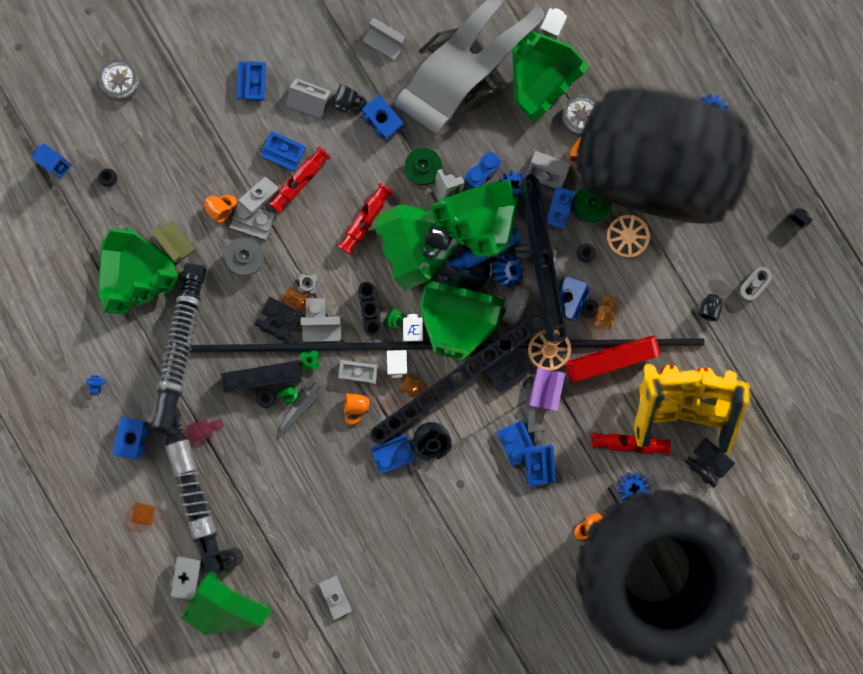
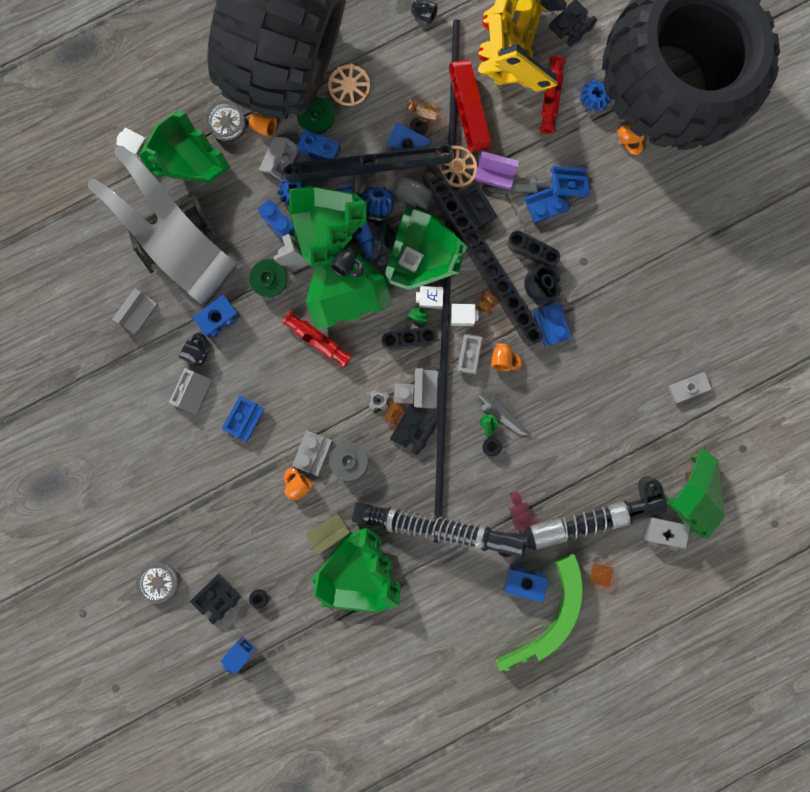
camera: 85 degrees left, 0 degrees up
(93, 476) = (562, 624): none -> bright green arch
(95, 383) = (468, 618): blue plate -> none
(110, 132) = (211, 594): none -> black plate
(251, 80) = (168, 447): blue plate -> none
(258, 195) = (287, 444): light grey plate -> none
(261, 376) = (470, 449): black brick -> none
(304, 174) = (266, 395): red piece -> none
(305, 364) = (460, 405): green plate -> none
(450, 307) = (410, 259): none -> light grey plate
(475, 424) = (526, 242): none -> black beam
(592, 253) = (363, 121): black plate -> none

